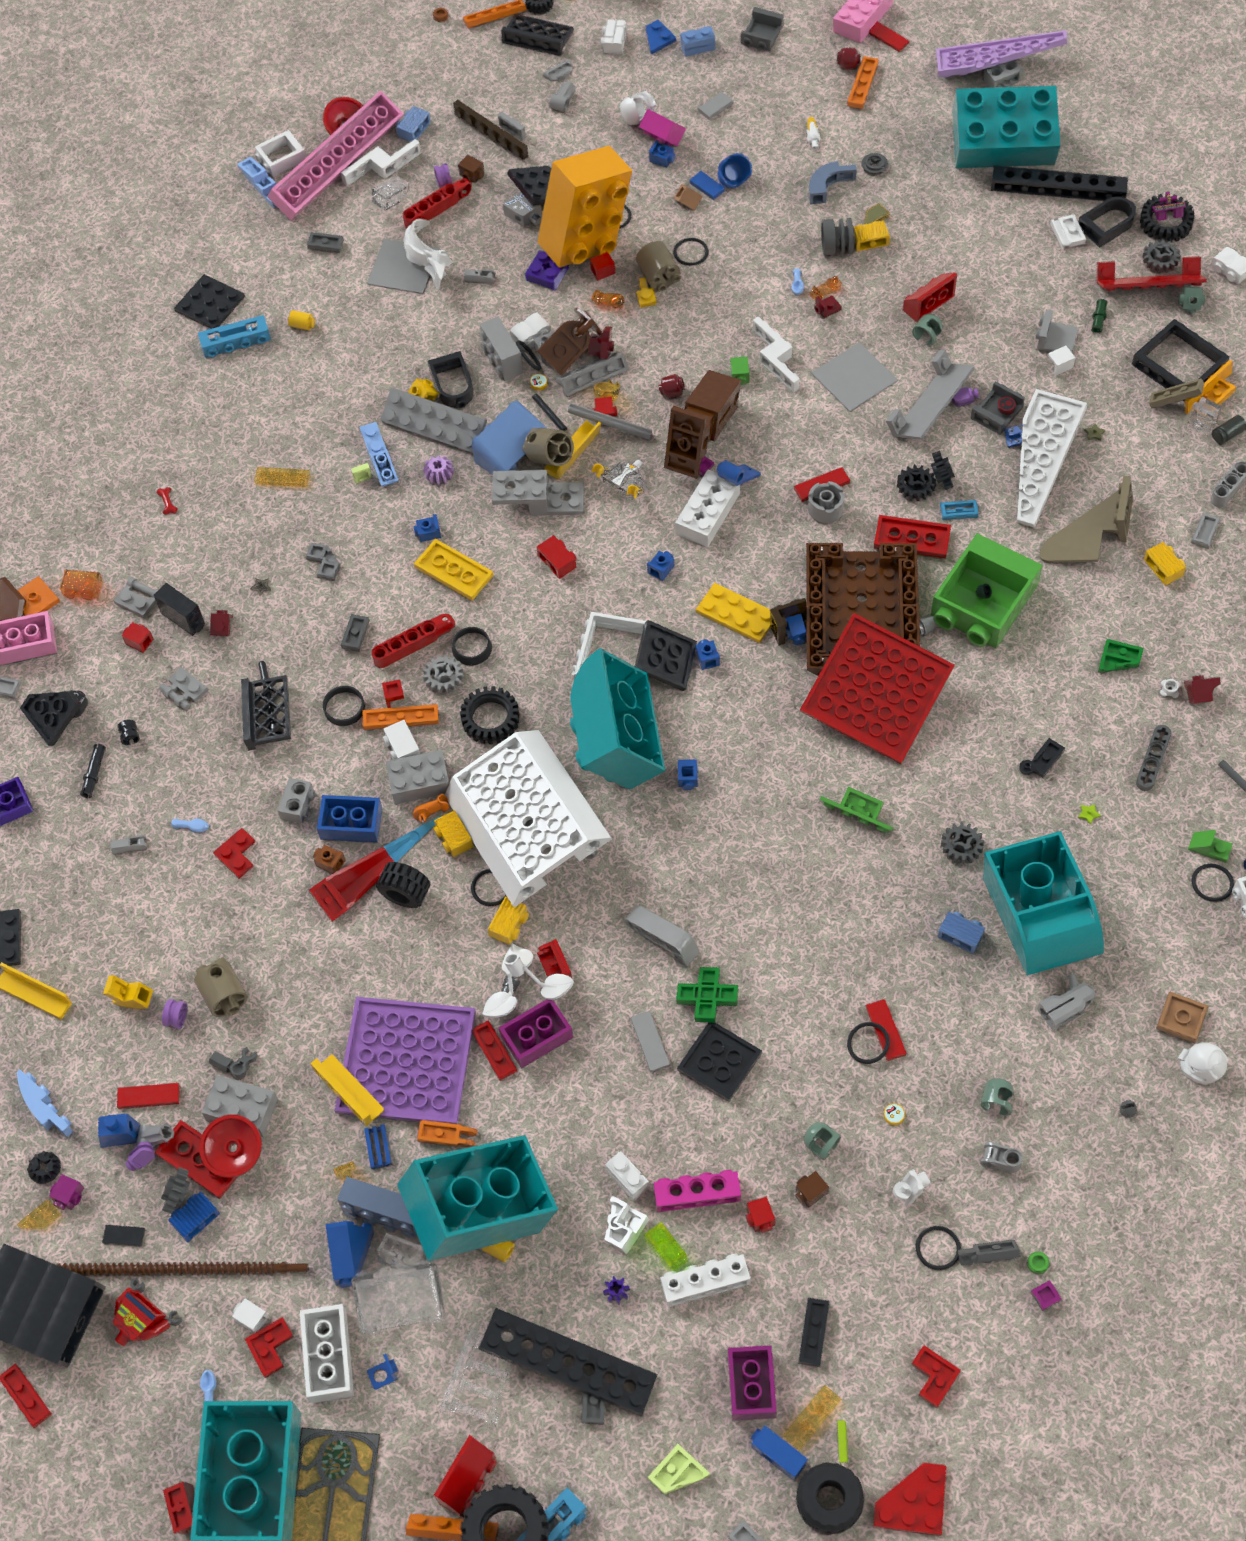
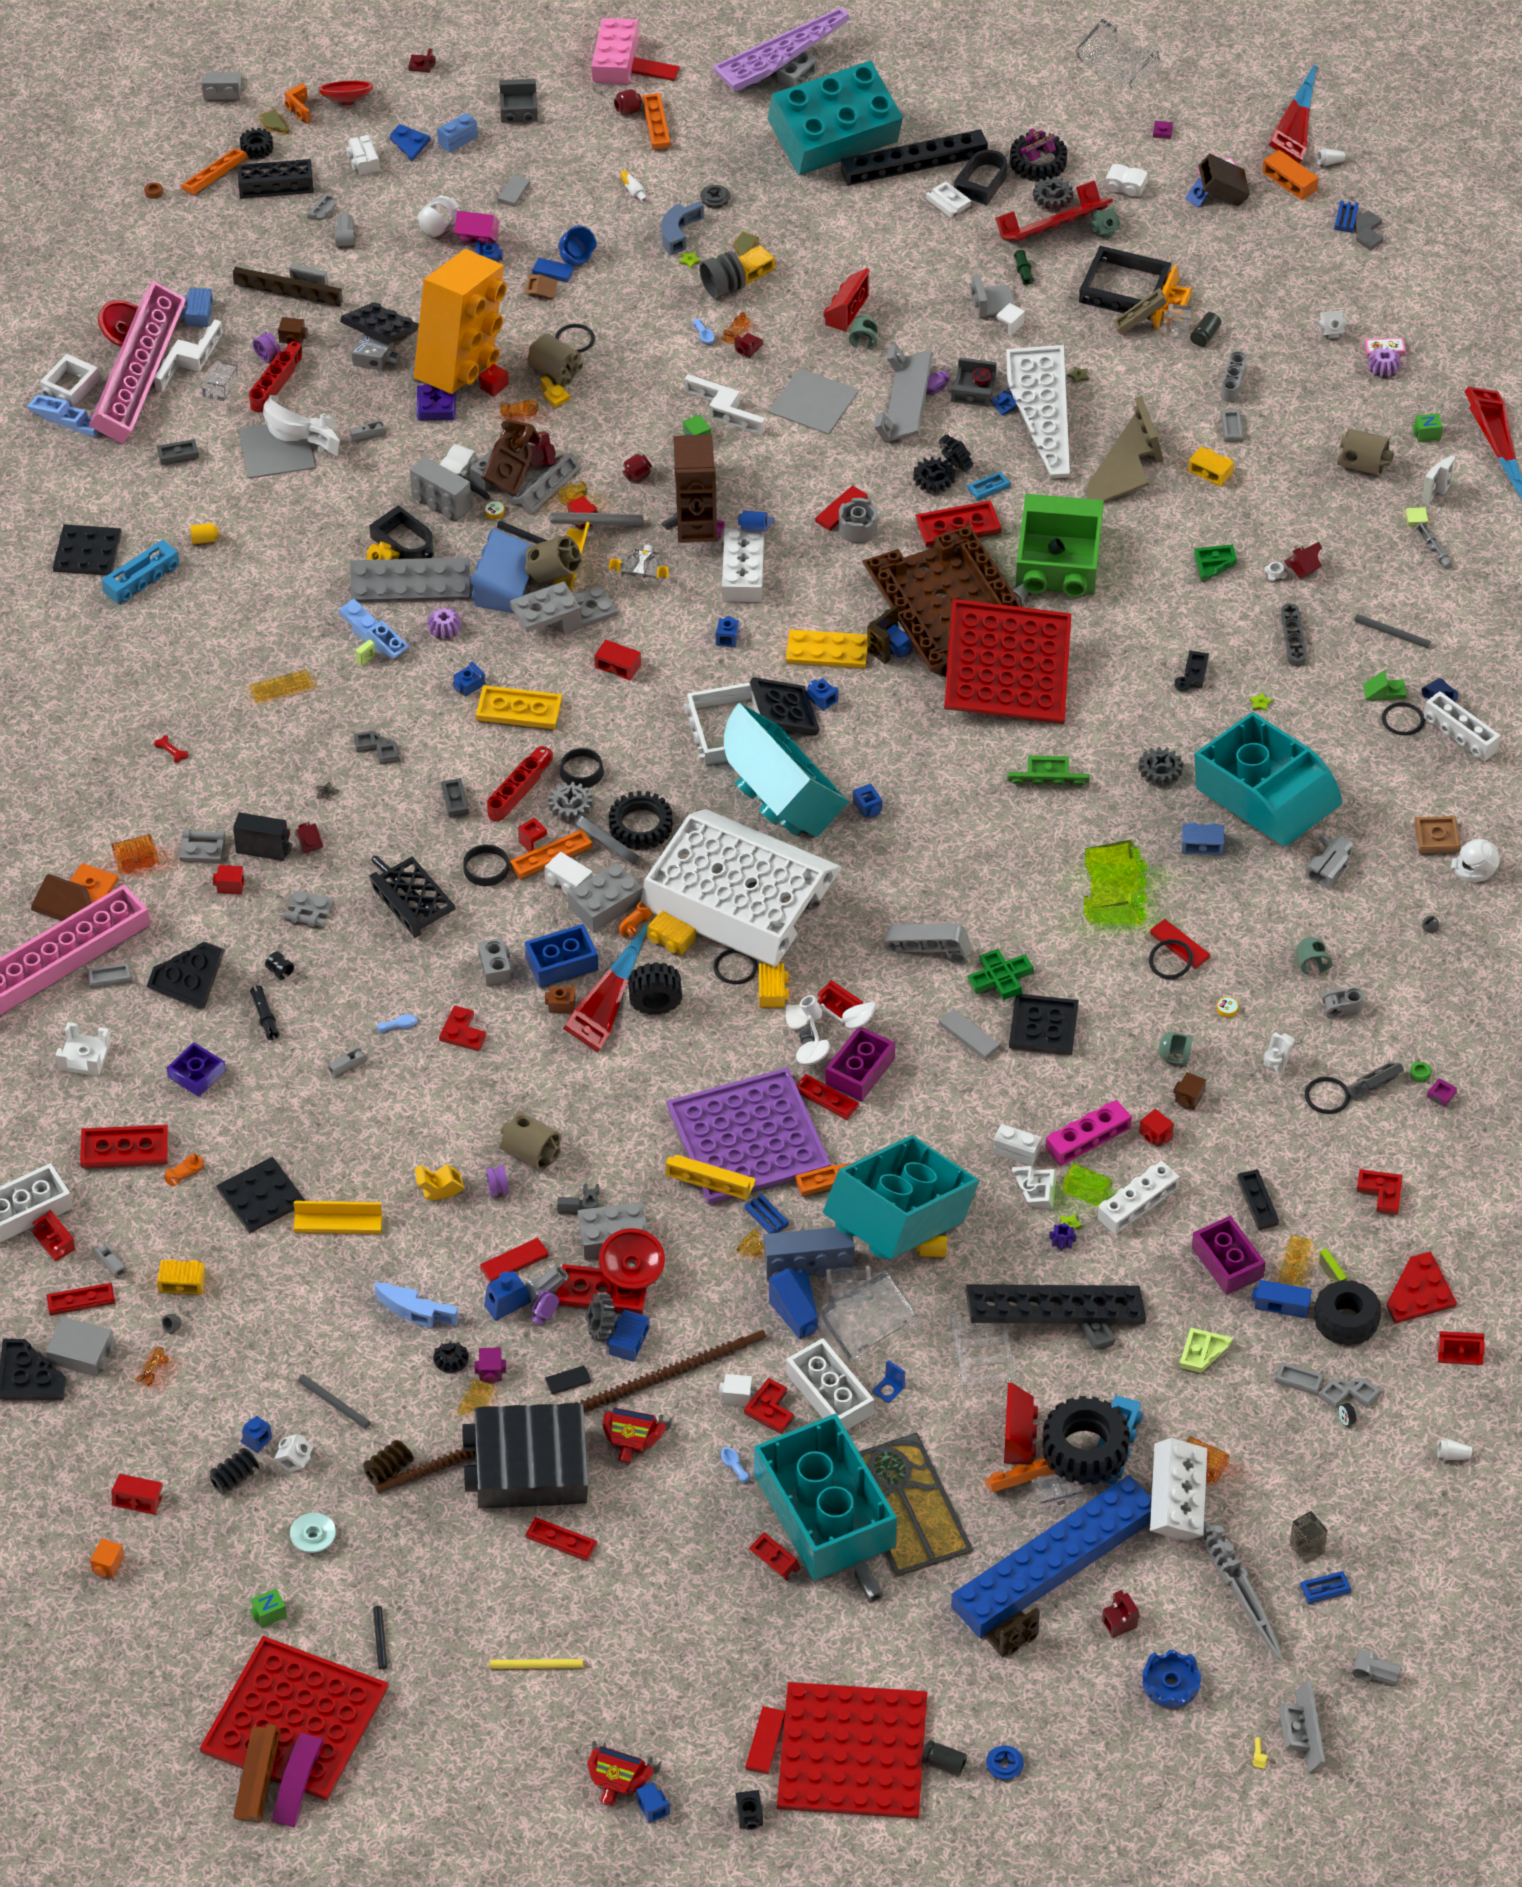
camera: 30 degrees left, 10 degrees down
(452, 722) = (606, 839): none -> dark grey beam
(632, 1277) = (1071, 1221): none -> lime piece
(822, 213) = (689, 259): none -> lime piece
(859, 948) = (1116, 884): none -> clear neon green windscreen

